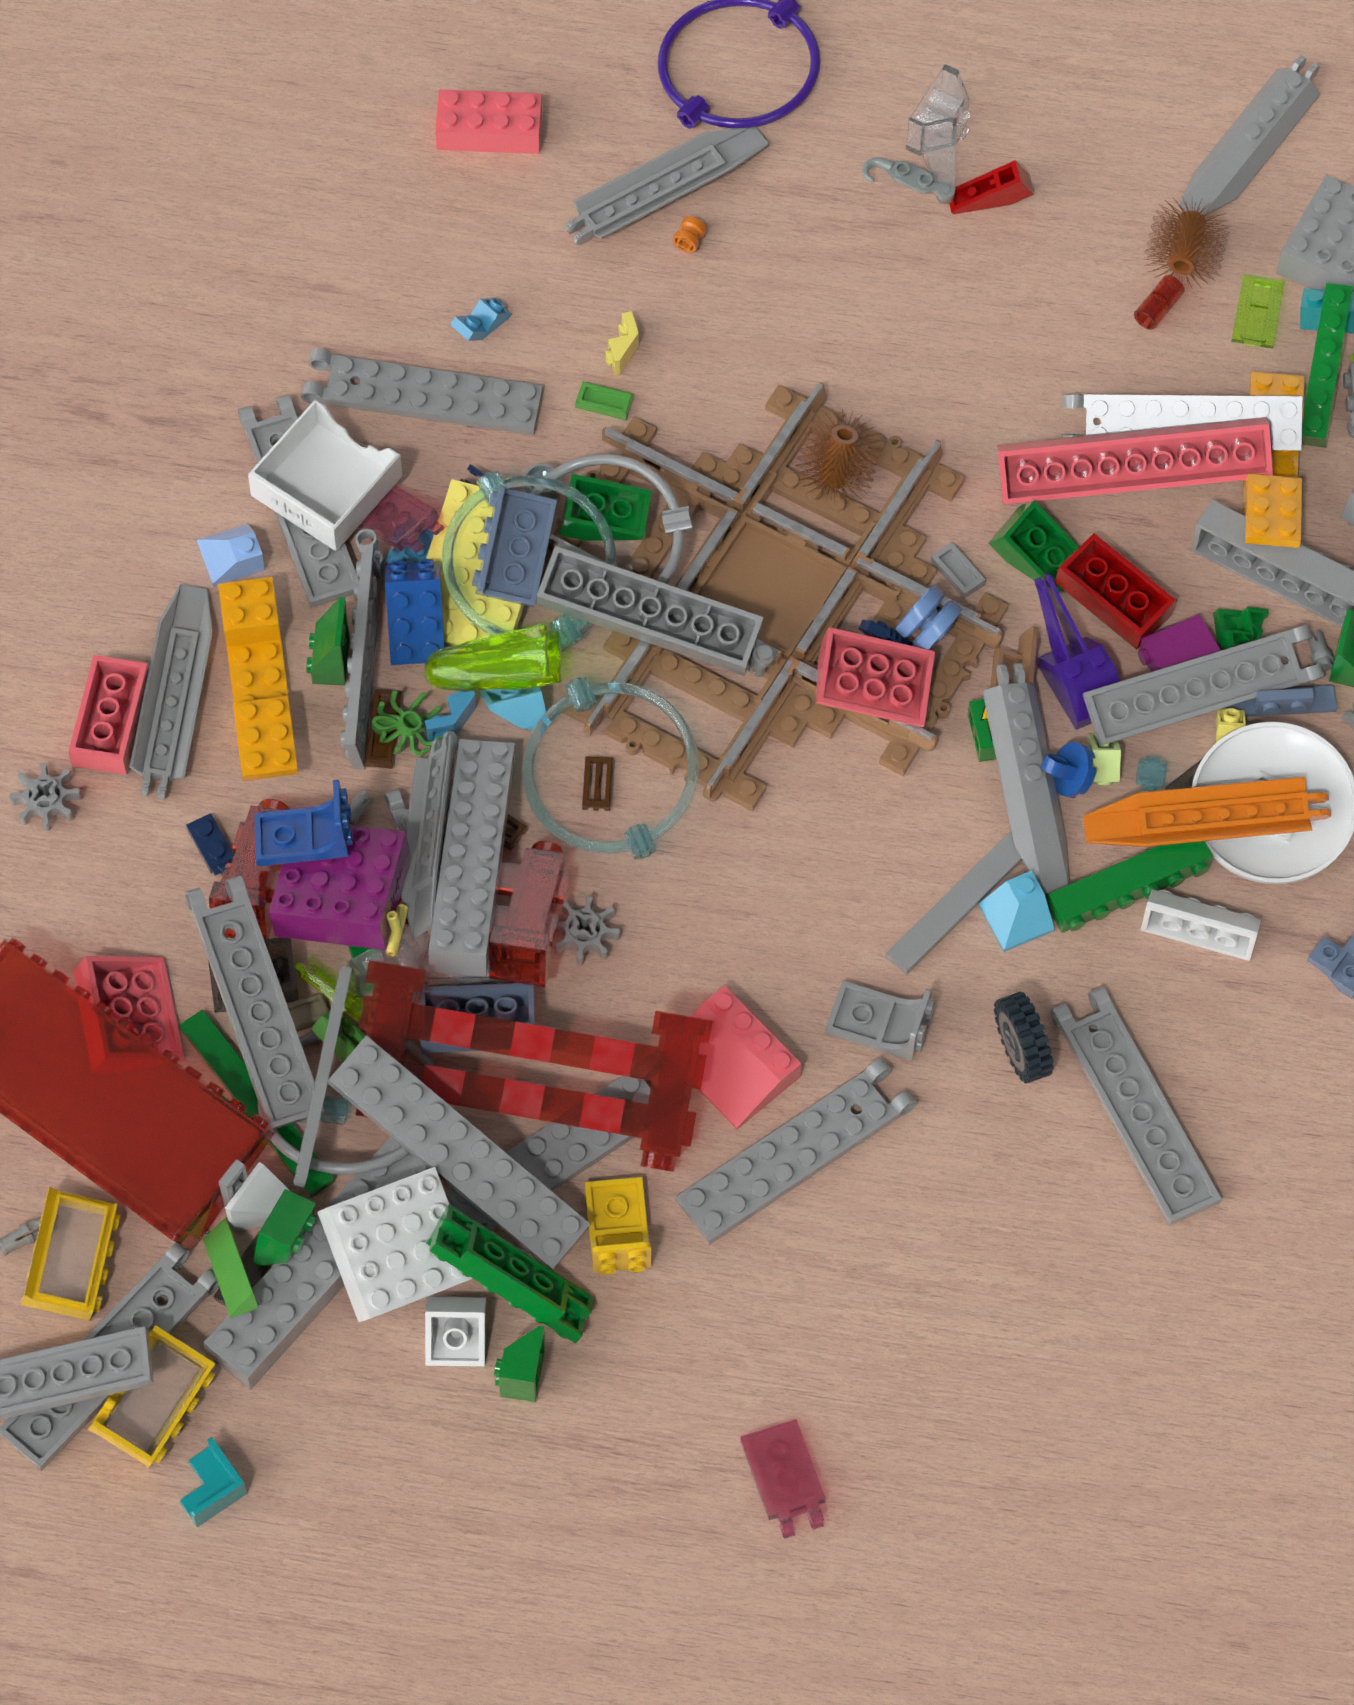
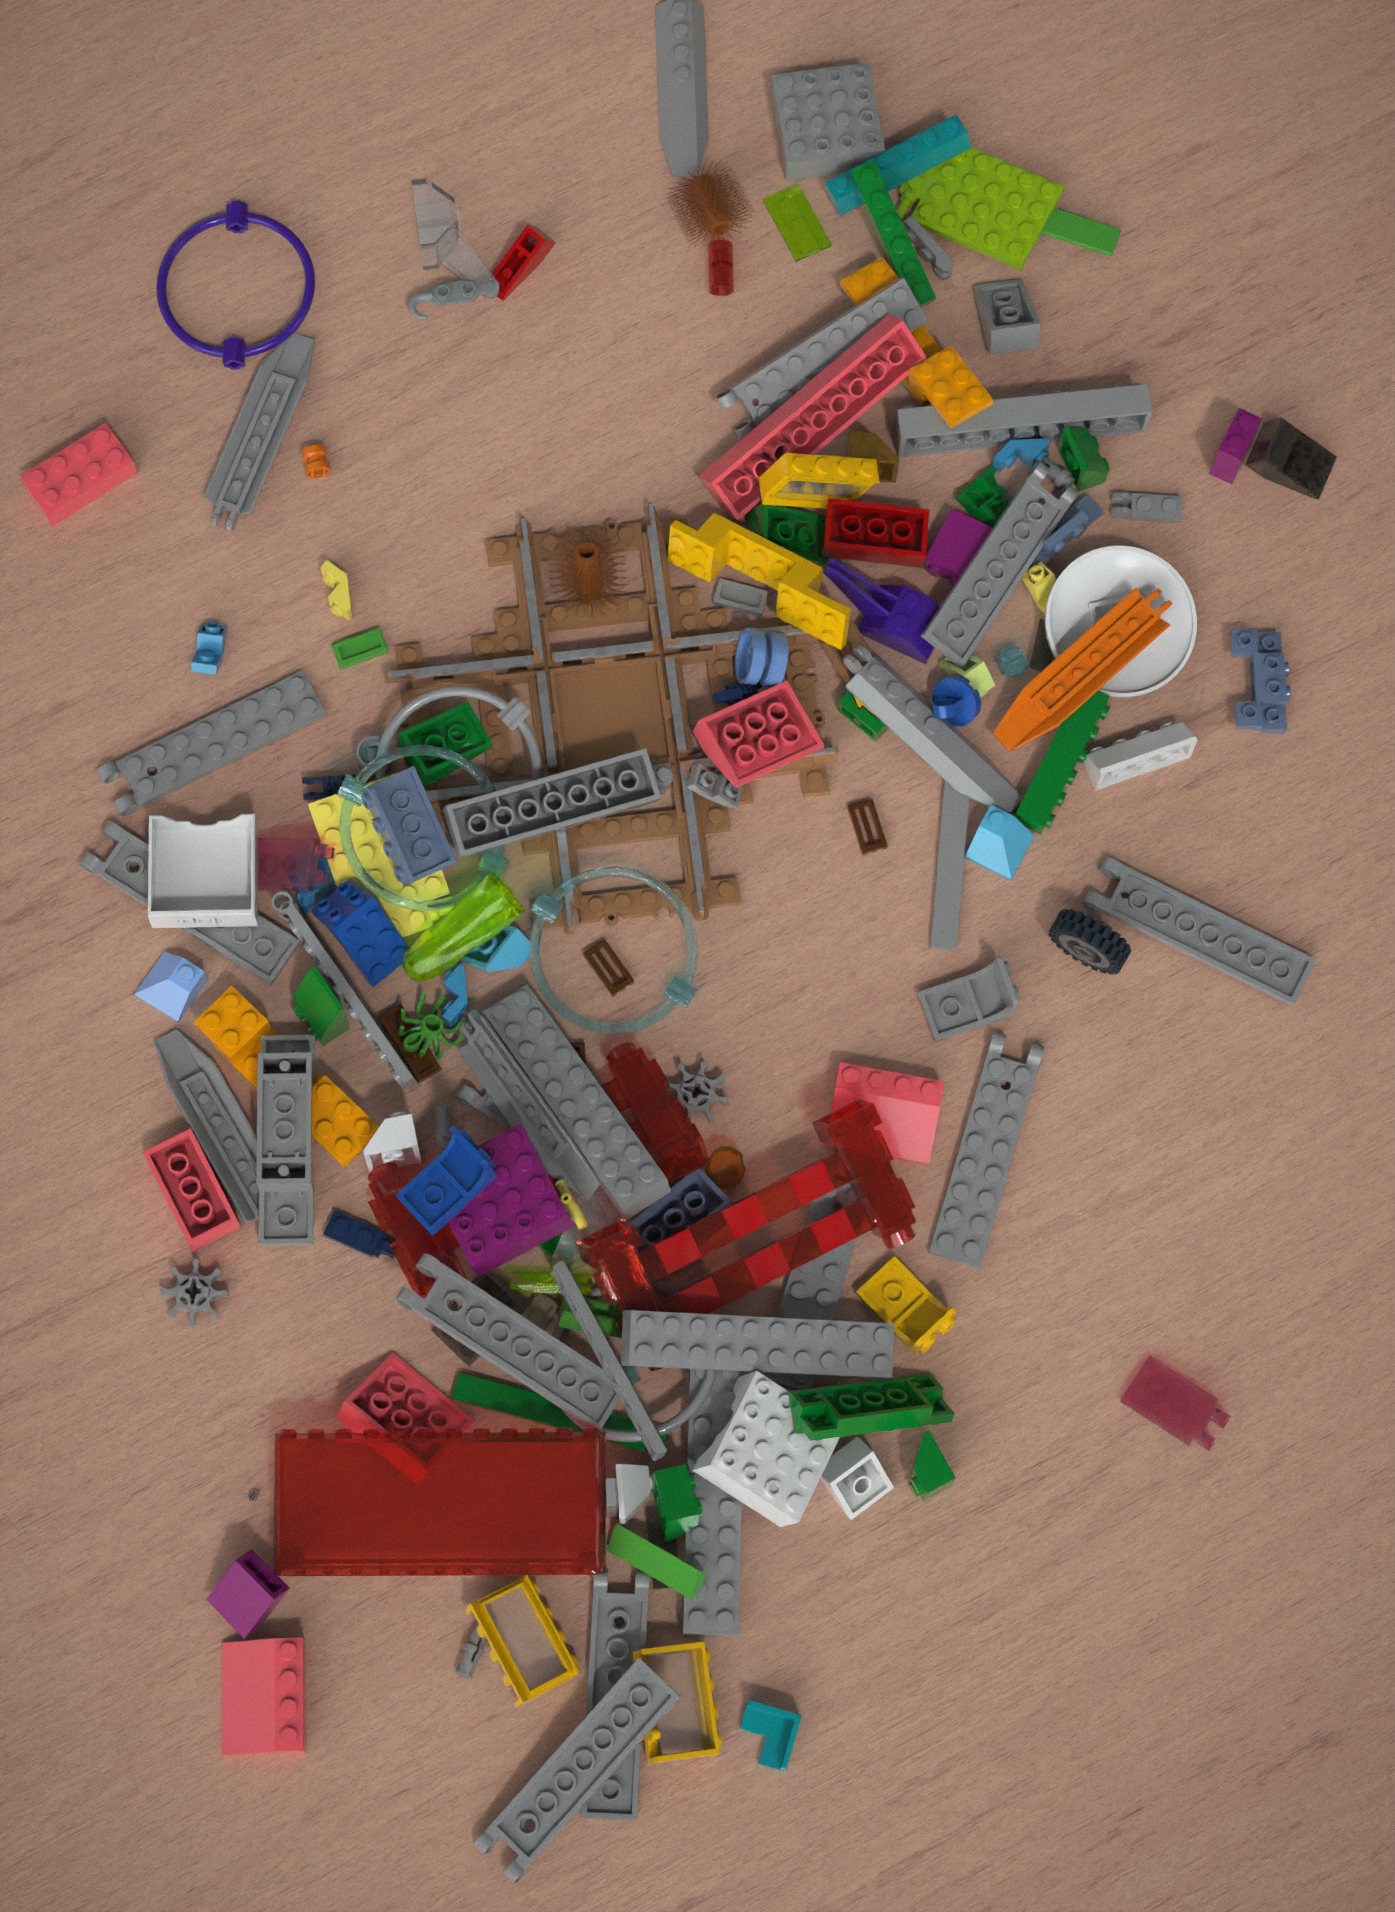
camera: 40 degrees left, 10 degrees up
(207, 719) = (285, 1140): none -> light grey bracket
(295, 781) = (394, 1142): none -> white slope
(558, 1004) = (726, 1167): none -> clear orange hair
(802, 696) = (713, 786): none -> light grey slope
(906, 842) = (873, 847): none -> reddish brown tile
(1007, 577) = (794, 577): none -> yellow bracket
(1091, 506) = (812, 479): none -> yellow window
(1157, 528) = (868, 445): none -> pearl gold slope
(1308, 613) = (1027, 450): none -> dark azure slope

